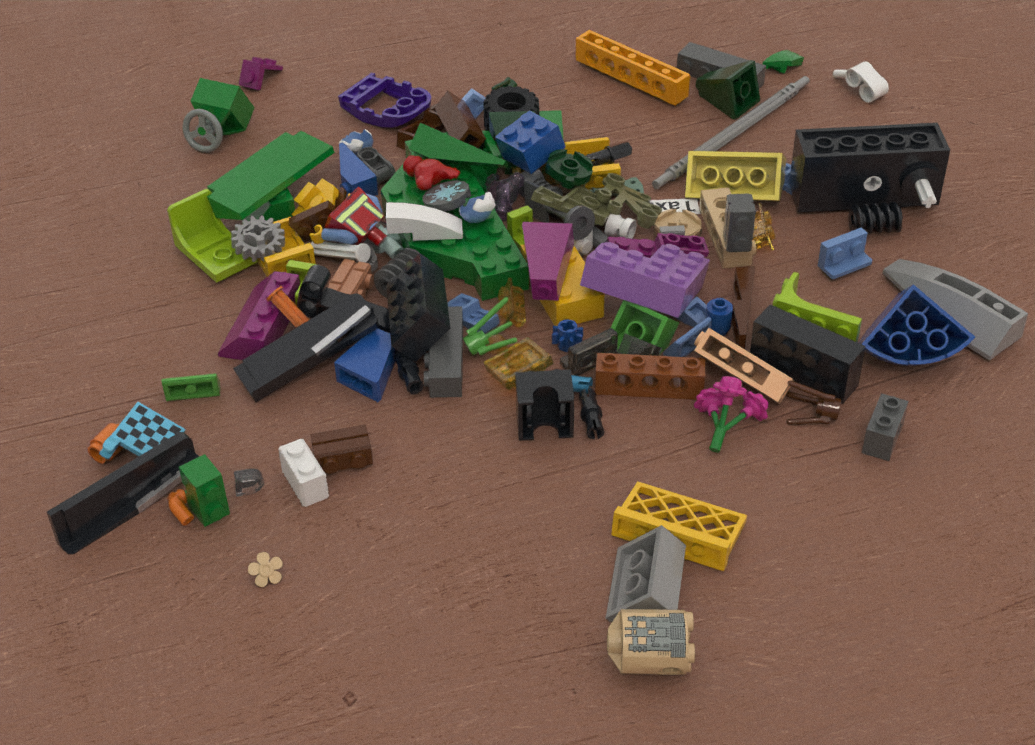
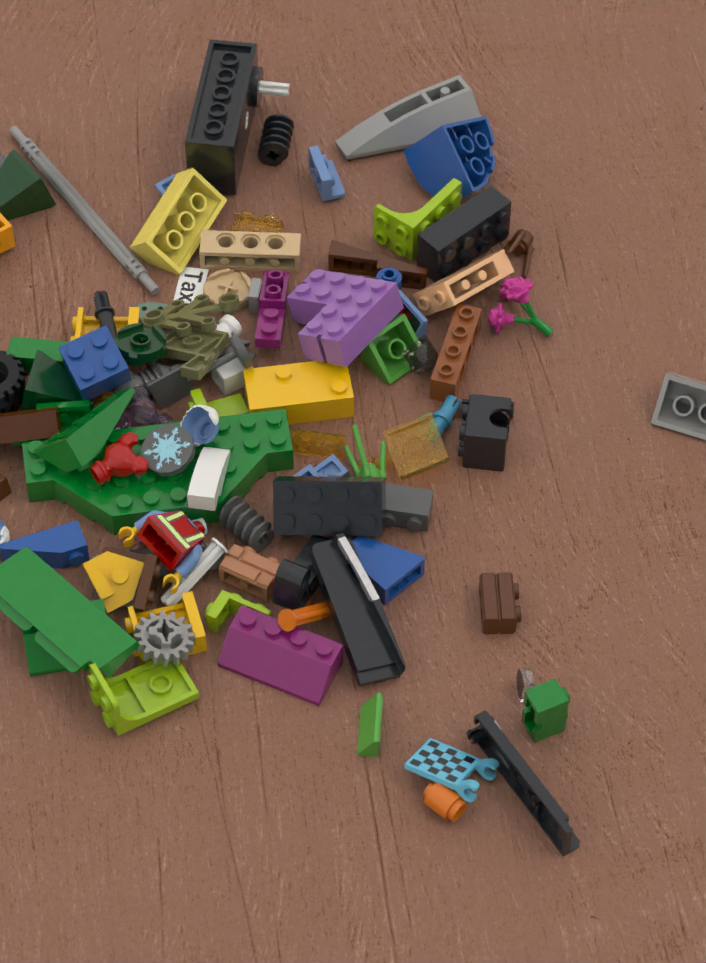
camera: 80 degrees left, 10 degrees up
(177, 506) = (535, 747): orange arm -> none
(265, 569) = (636, 678): tan plant -> none
(303, 472) = (524, 635): white brick -> none
(377, 164) = (41, 520): dark grey piece -> none
(409, 373) = (415, 536): black pin -> none
(548, 255) = (295, 384): magenta slope -> none
(567, 334) = (379, 404): blue gear -> none
(583, 355) = (412, 390): clear smoke bracket -> none
(701, 544) = (651, 381): yellow fence -> none
(739, 222) = (293, 227): dark grey brick -> none
(864, 75) = (40, 82): white beam -> none
(885, 427) = (557, 211): dark grey brick -> none

